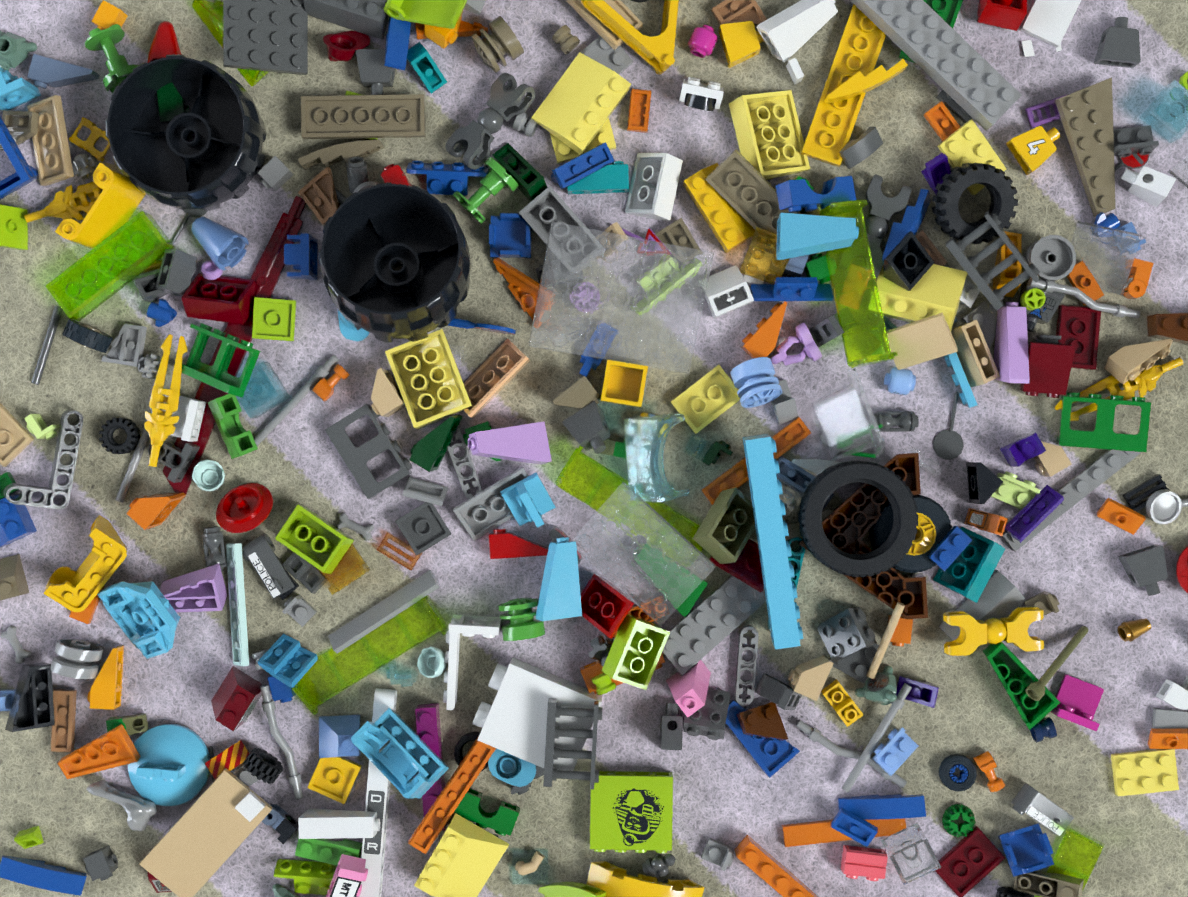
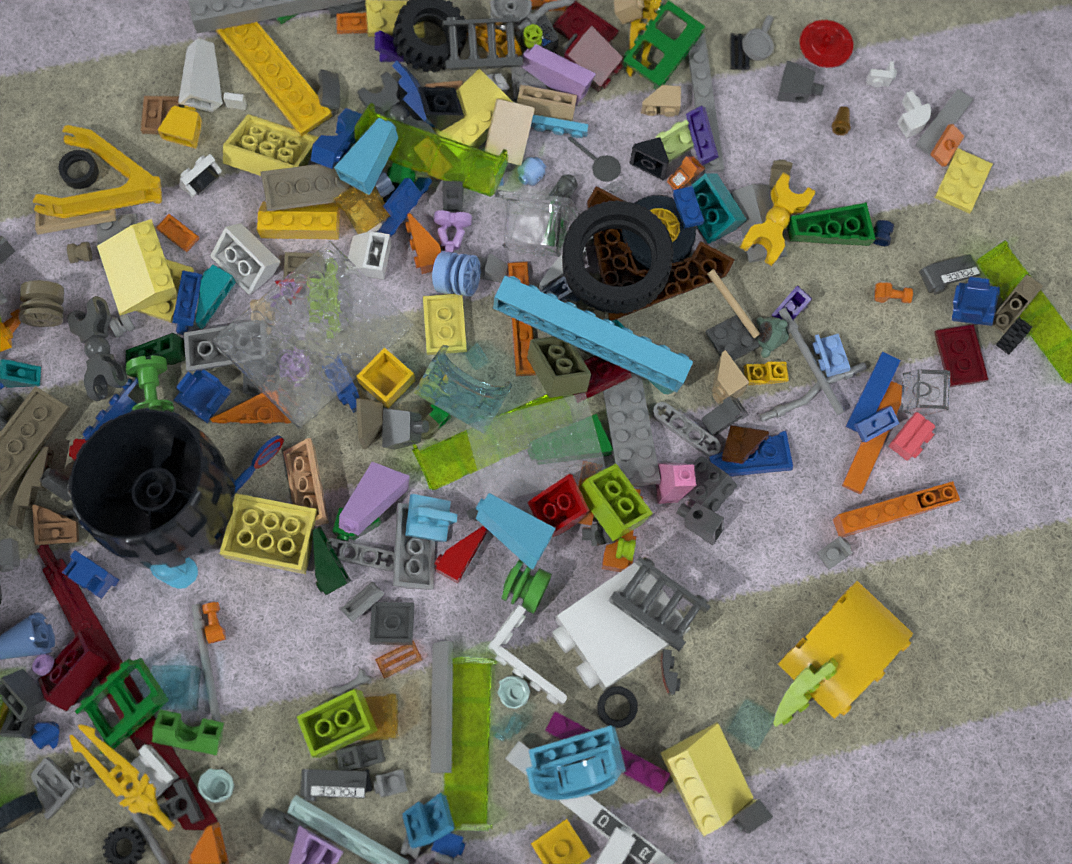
camera: 65 degrees left, 15 degrees down
(244, 507) = (266, 770): red piece -> none
(273, 319) = (124, 635): lime plate -> none
(336, 735) = (527, 819): medium blue slope -> none
(357, 457) = (293, 640): dark grey window -> none
(386, 395) = (259, 577): tan slope -> none
(451, 796) = (642, 746): orange tile -> none
(501, 820) = (693, 719): green arch -> none
(511, 768) = (650, 678): medium azure piece -> none
(529, 867) = (750, 721): tan arm -> none
(632, 812) = (754, 601): lime panel -> none
(658, 865) = (815, 607): dark grey piece -> none
(702, 41) = (160, 153): dark pink head -> none
(712, 454) = (492, 346): dark green bracket -> none
(846, 633) = (708, 332): dark grey bracket -> none
(859, 84) = (280, 58): yellow slope -> none
(902, 632) = (736, 288): orange brick -> none
(953, 813) = (922, 351): green gear -> none
(967, 777) = (888, 314): black bush -> none
(1022, 450) = (646, 114): dark purple slope -> none
(1037, 689) = (844, 211): olive piece -> none
(1078, 701) = (876, 193): dark pink bracket -> none
(1121, 516) = (745, 78): orange plate -> none

